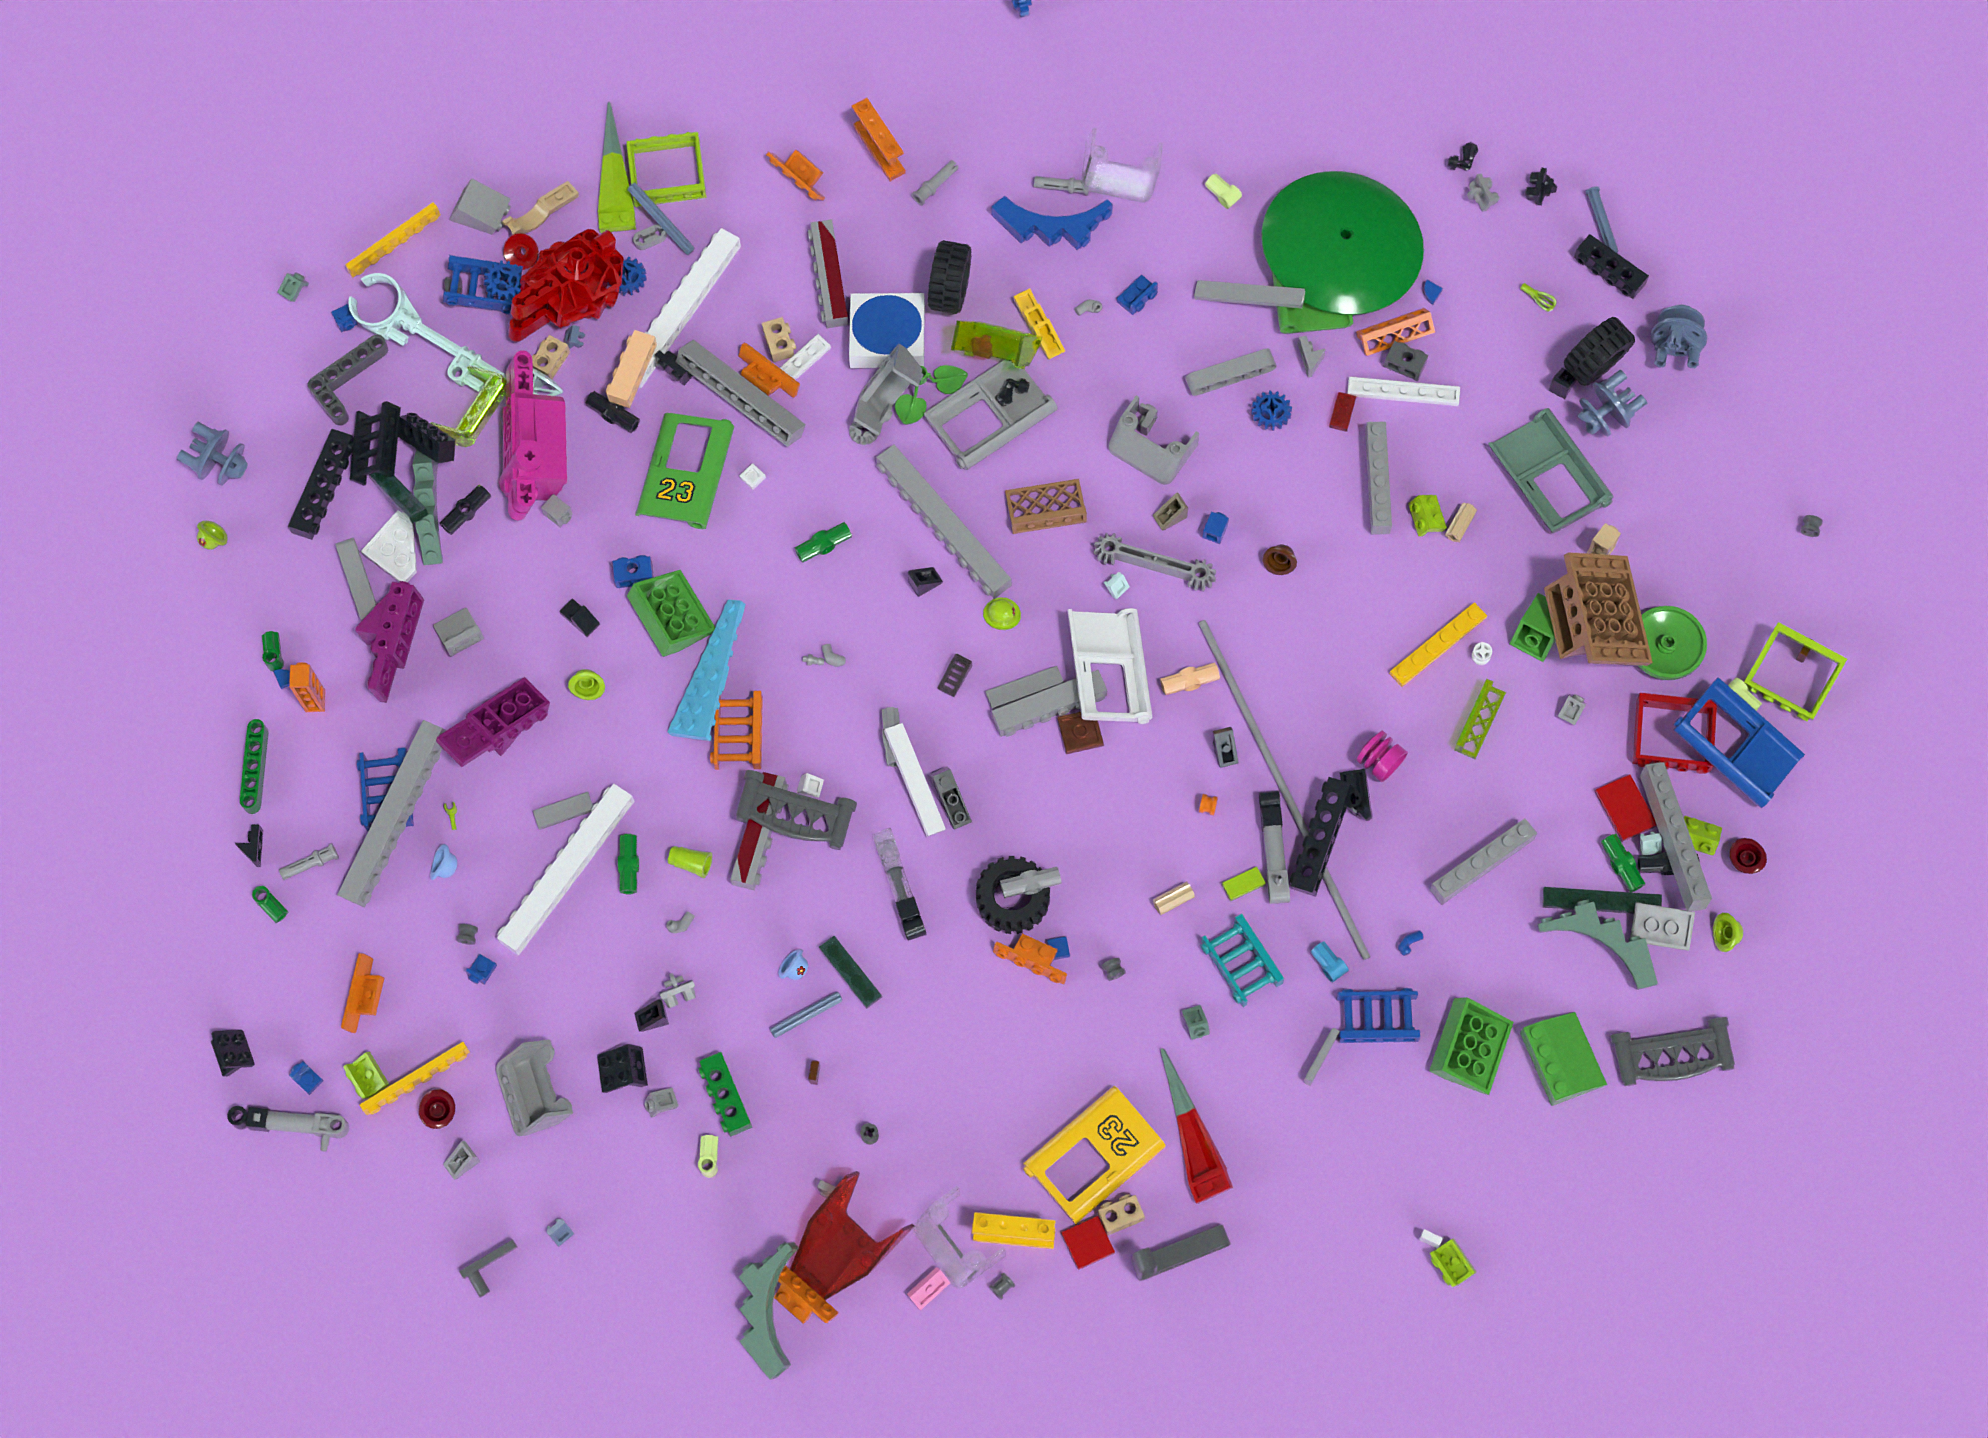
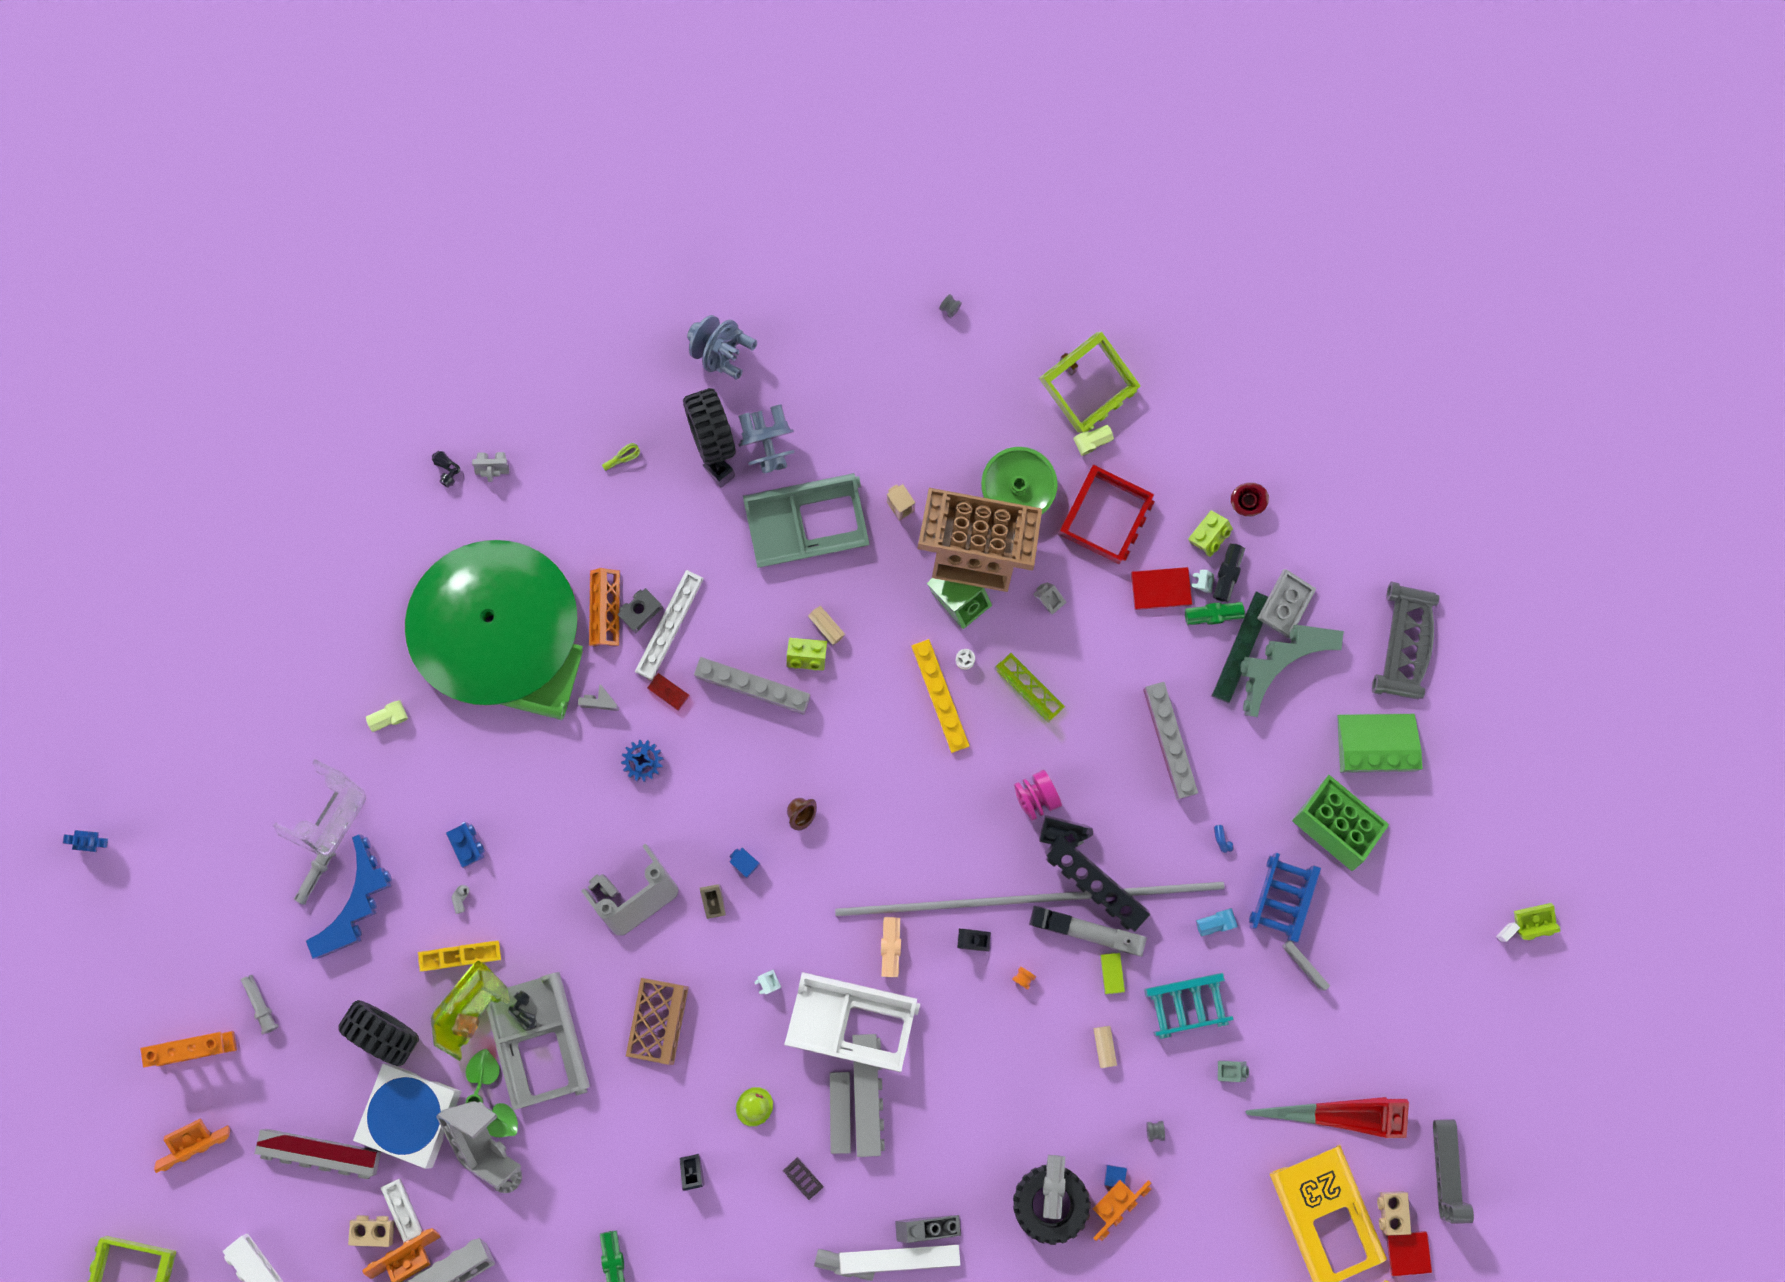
camera: 75 degrees left, 10 degrees up
(943, 521) = (636, 1131): light grey brick -> none
(1079, 733) = (910, 1079): copper tile -> none
(1154, 561) = (757, 936): light grey arm -> none
(1230, 372) = (586, 784): light grey beam -> none
(1249, 294) = (512, 735): light grey tile -> none
(1432, 291) = (575, 556): blue tile -> none
(1544, 186) = (499, 404): black hips -> none
(1601, 217) = (566, 365): sand blue axle -> none
(1608, 257) = (622, 367): black brick -> none
(1675, 837) = (1212, 557): light grey brick -> none
(1727, 932) = (1313, 548): lime hat -> none
(1760, 760) = (1161, 450): blue piece -> none

